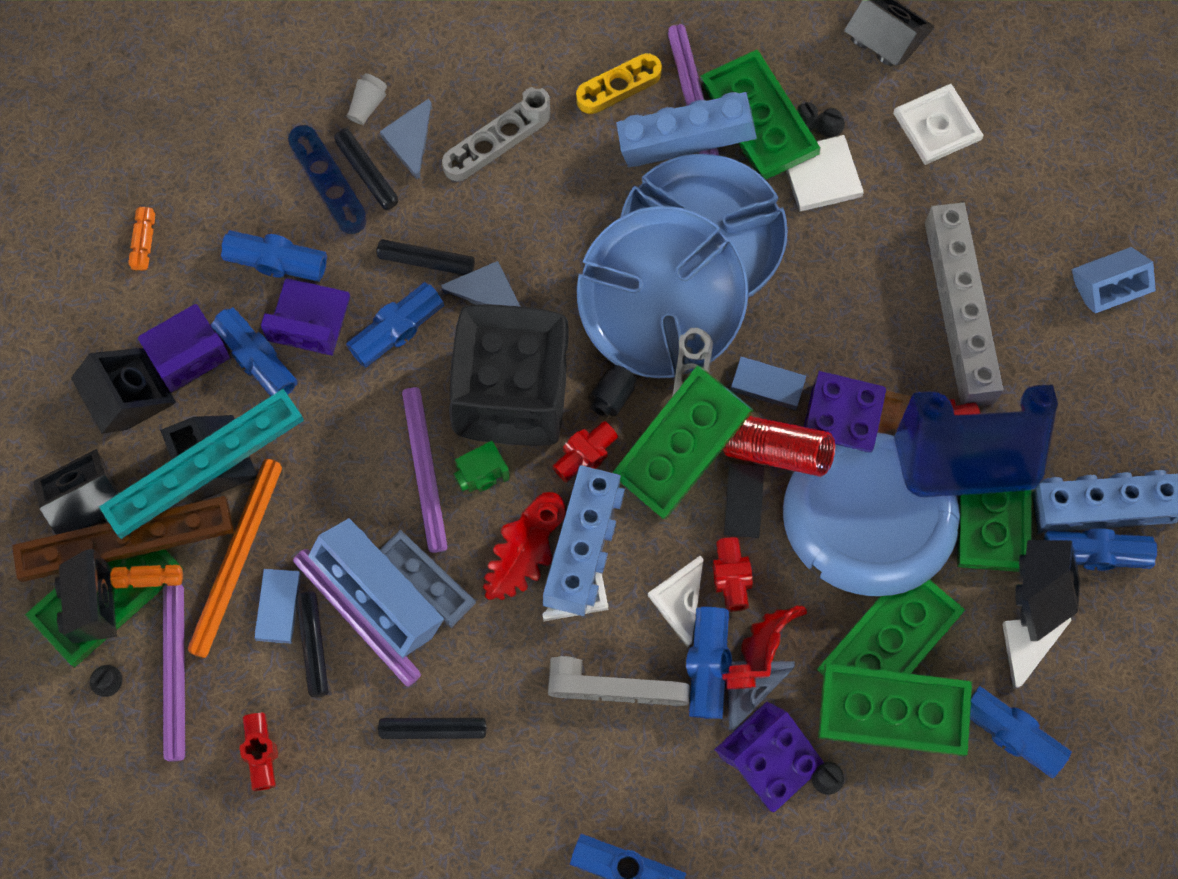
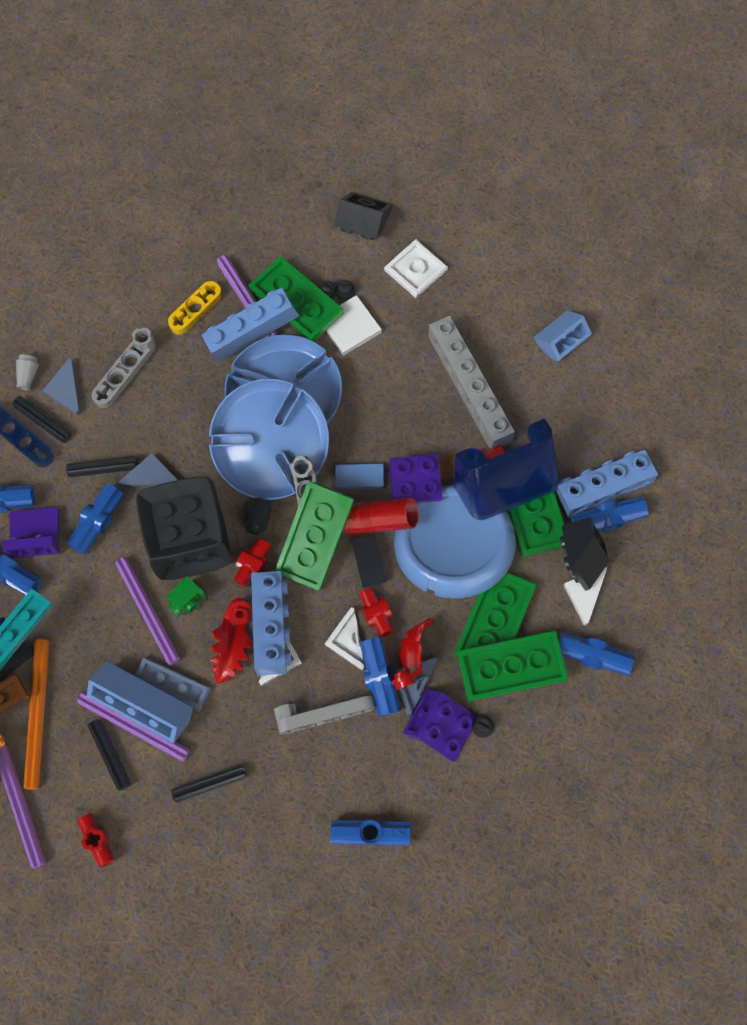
camera: 15 degrees left, 0 degrees up
(277, 606) = (76, 737): medium blue tile -> none

